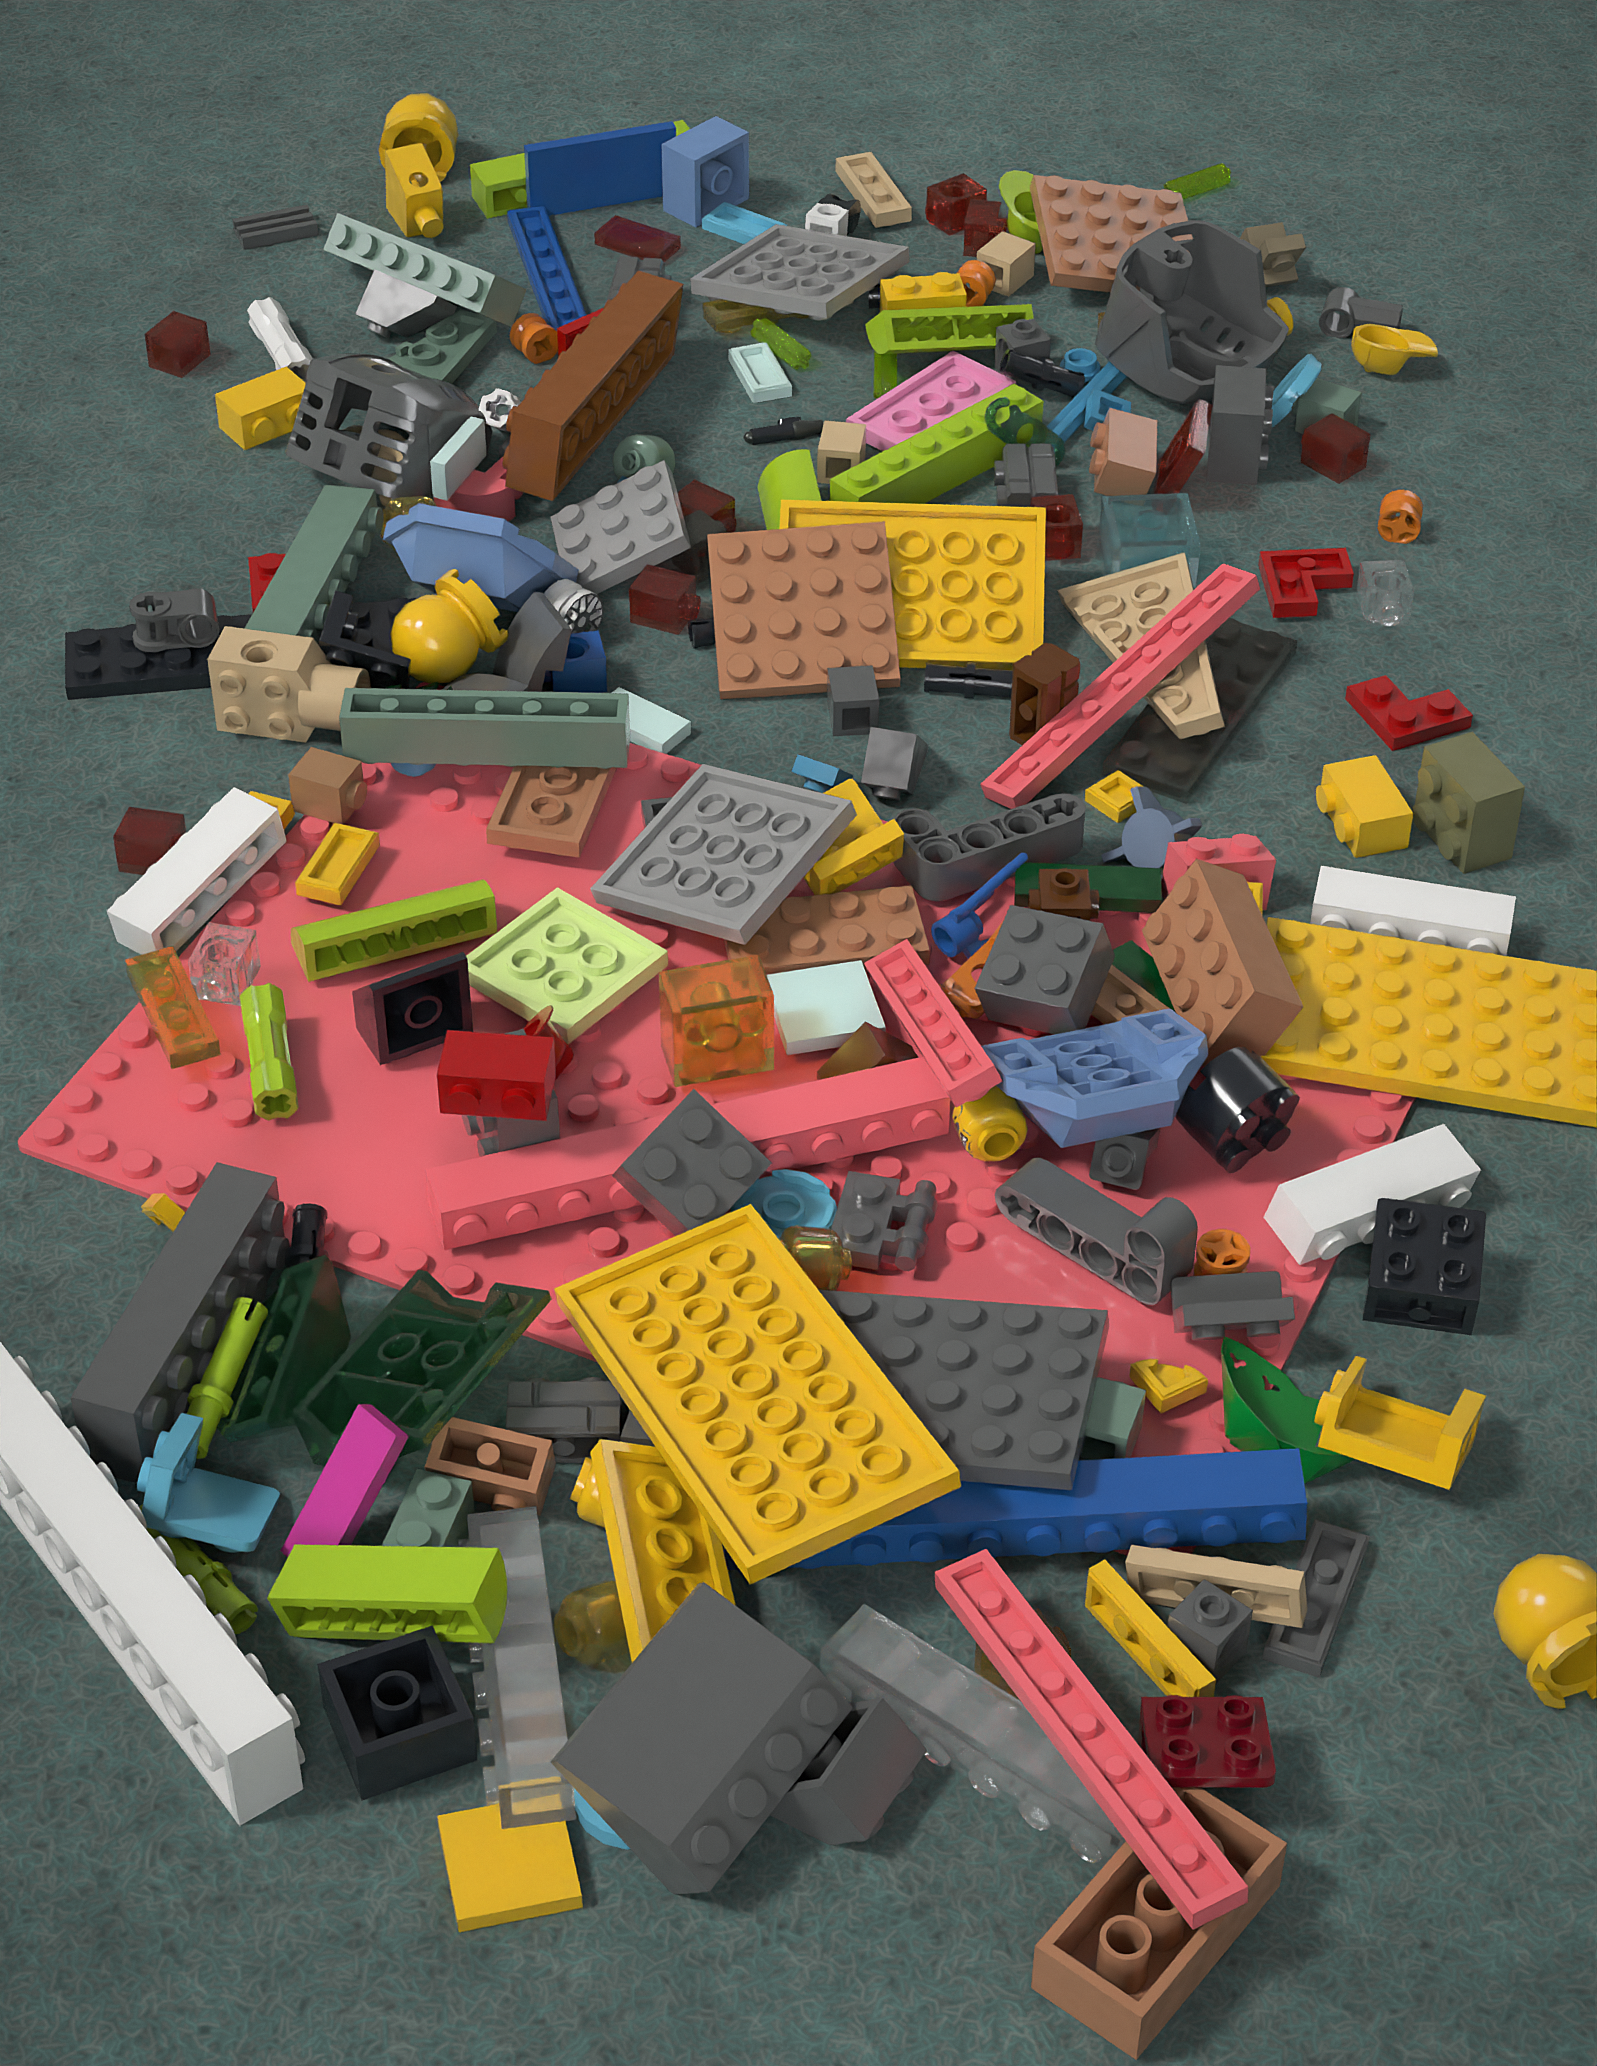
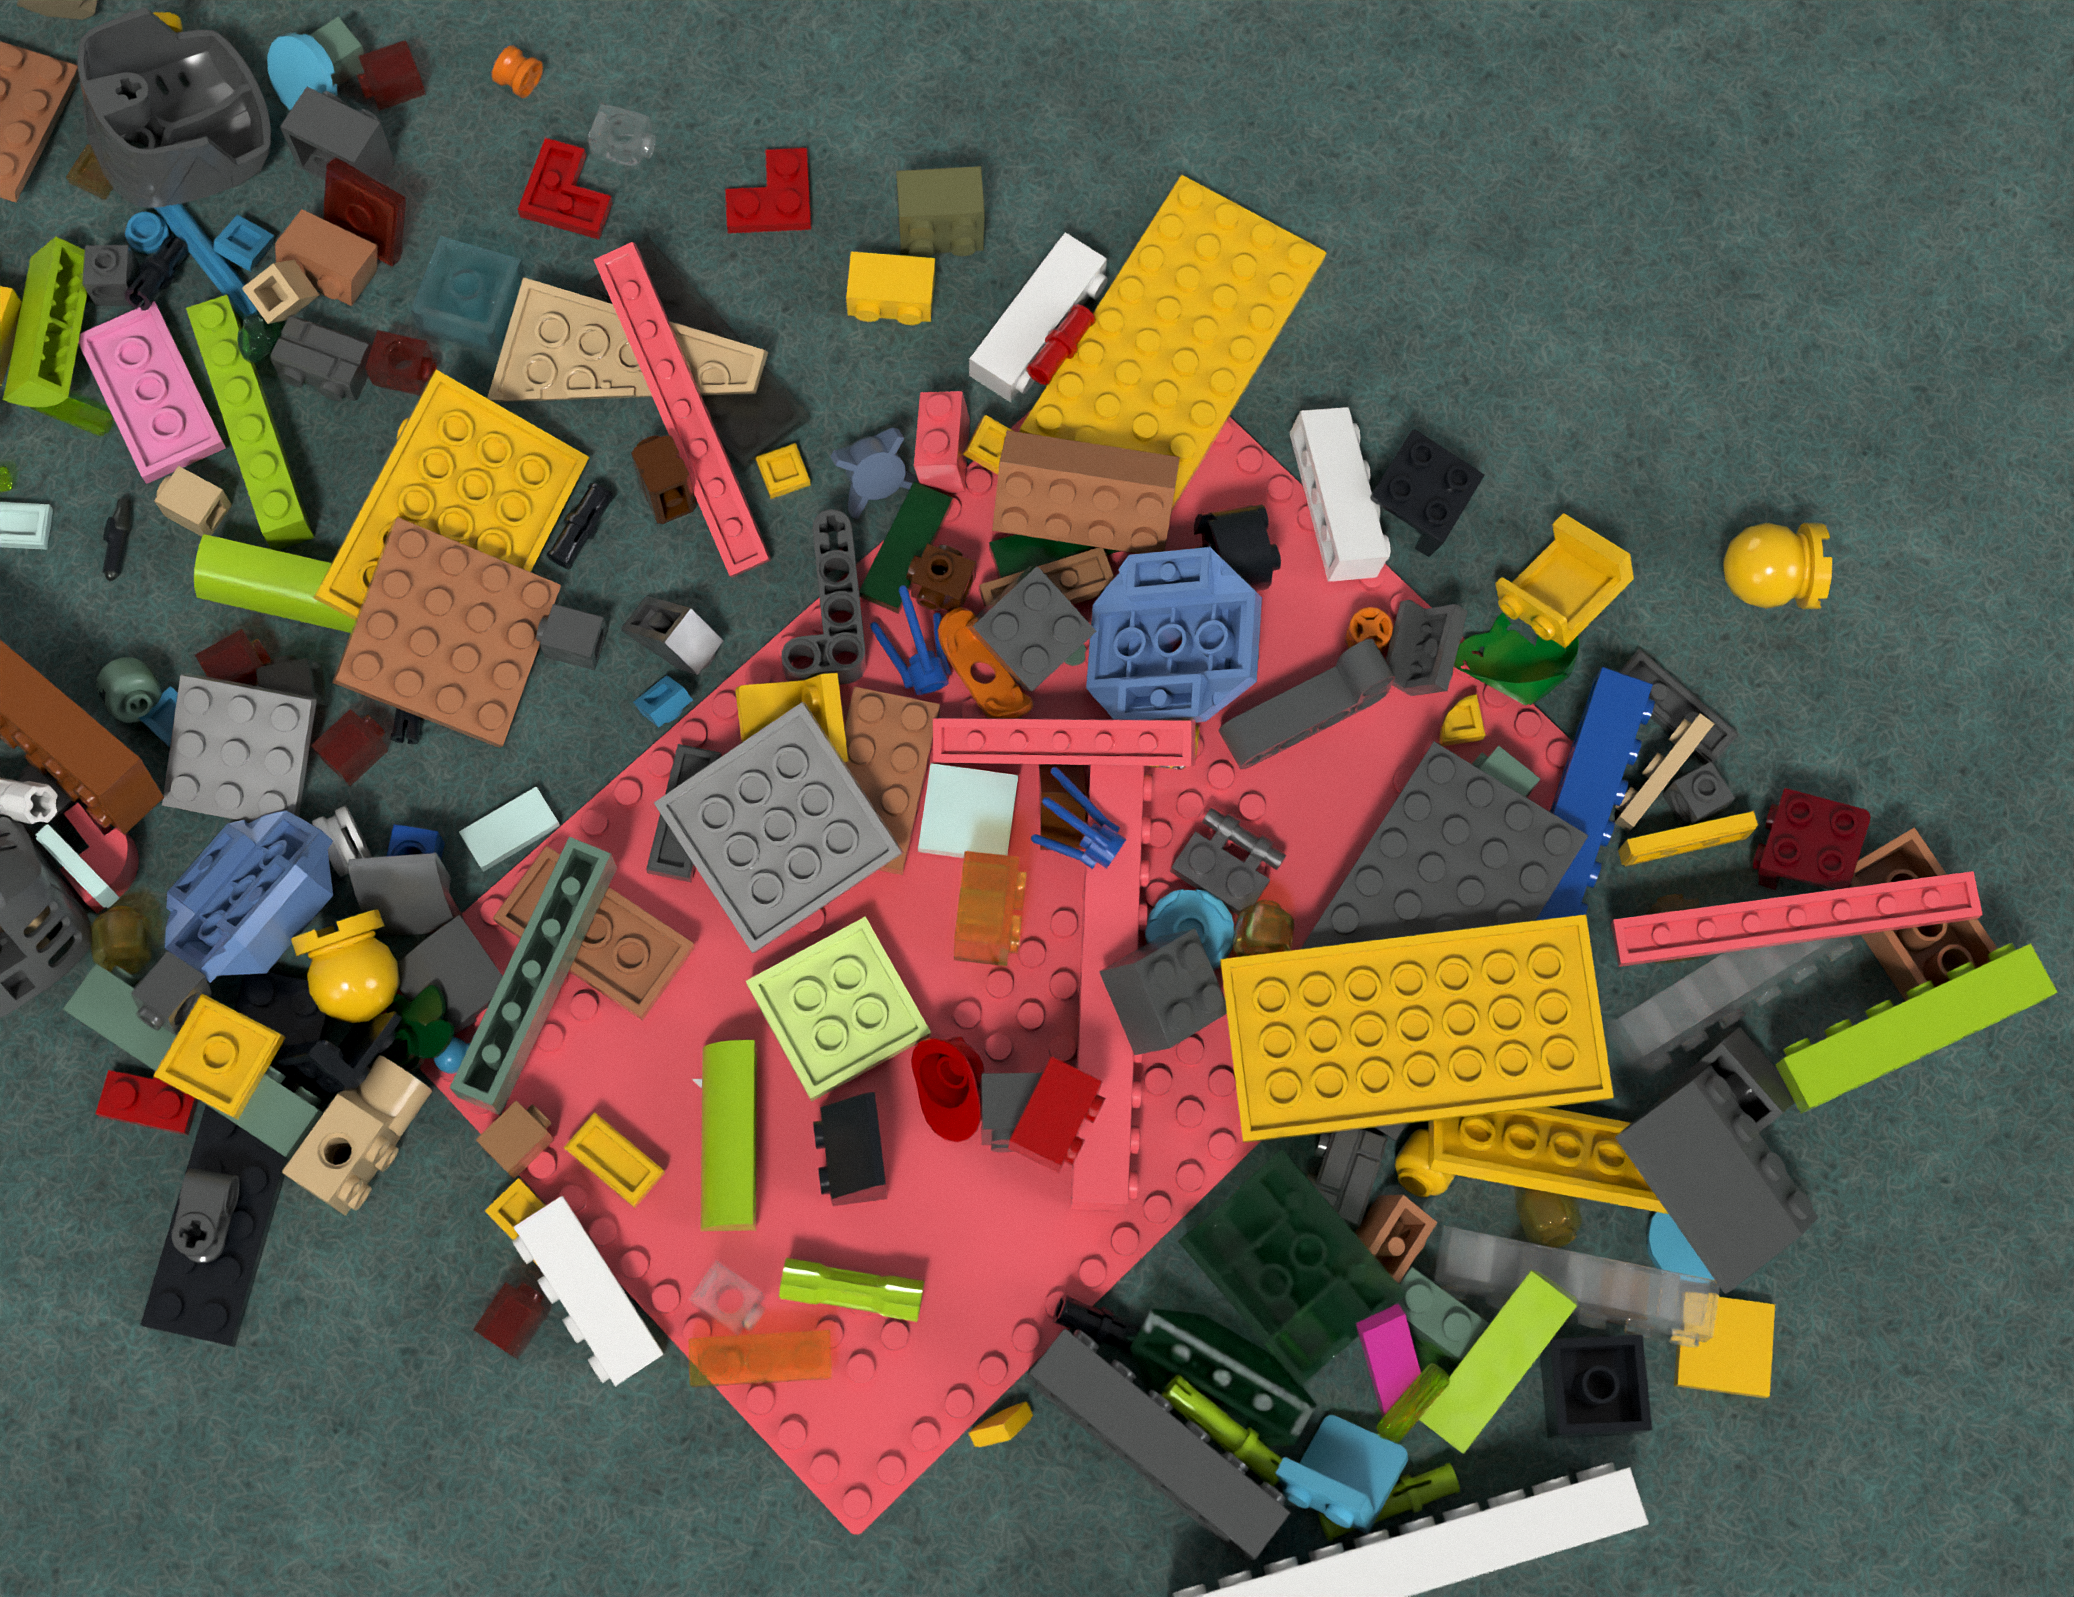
camera: 75 degrees left, 30 degrees up
(283, 1533) = (1413, 1403): none -> clear neon green axle
(317, 566) = (219, 1056): none -> yellow tile
(359, 519) = (169, 993): none -> dark grey brick
(830, 1070) = (1100, 842): none -> blue plant
(1007, 1895) = (1915, 1027): none -> lime brick
(1065, 421) = (280, 291): none -> tan brick
(1384, 921) = (1061, 344): none -> red pin

